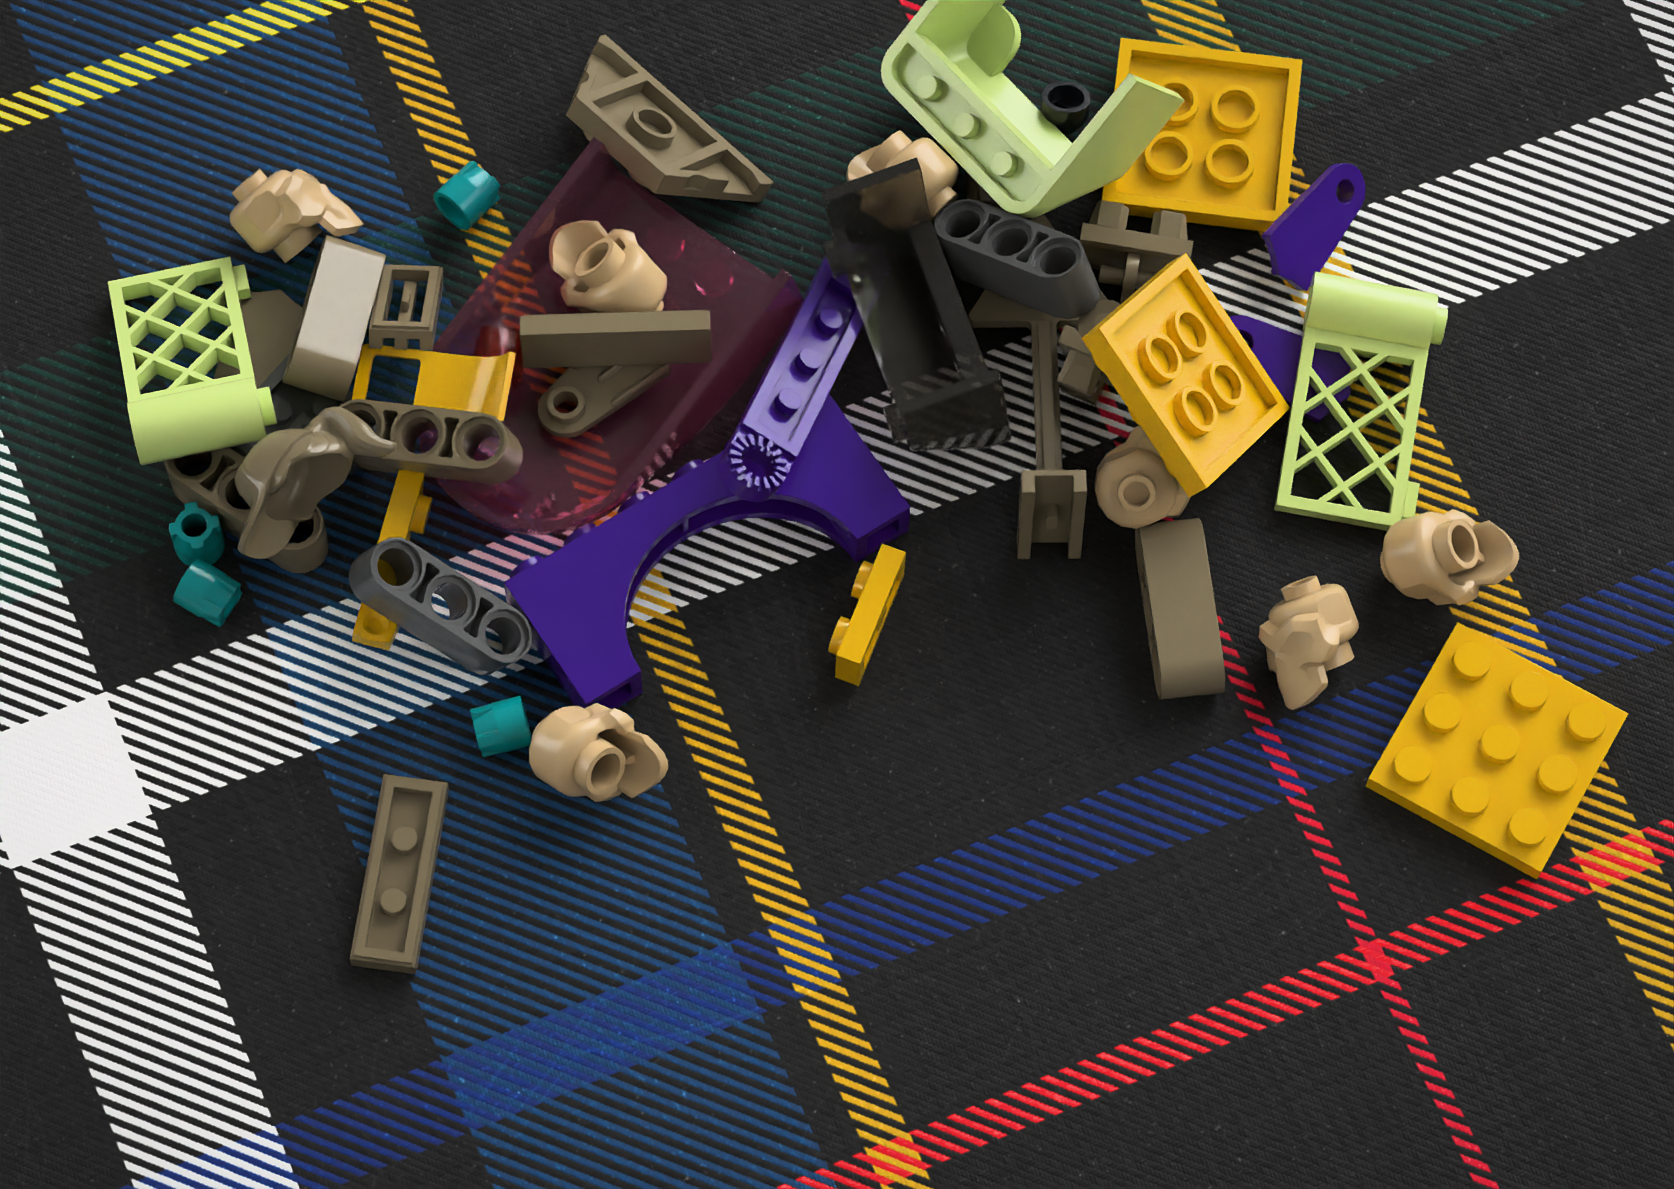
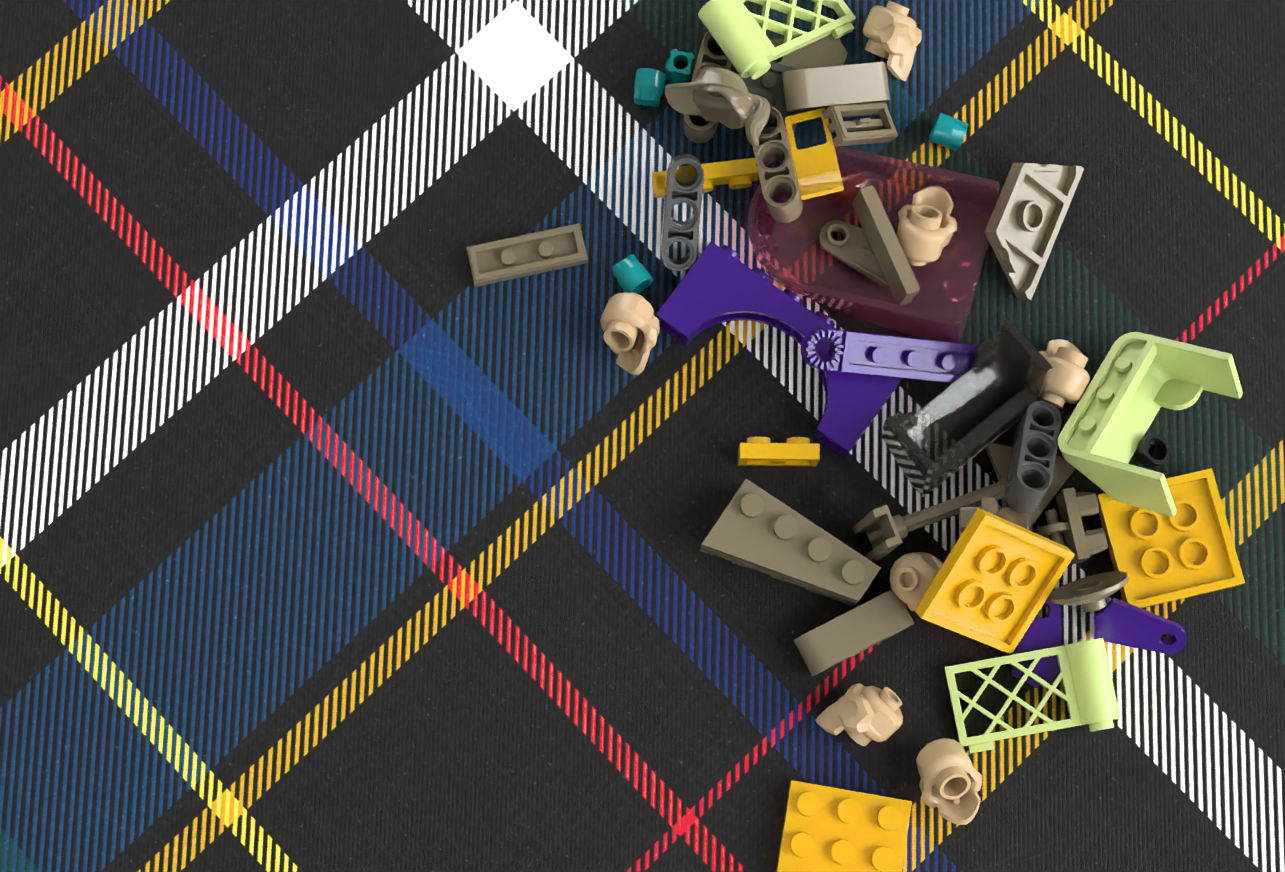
camera: 70 degrees right, 10 degrees up
(1012, 654) = (780, 542): none -> dark tan wedge
(1240, 258) = (1090, 590): none -> dark tan dish

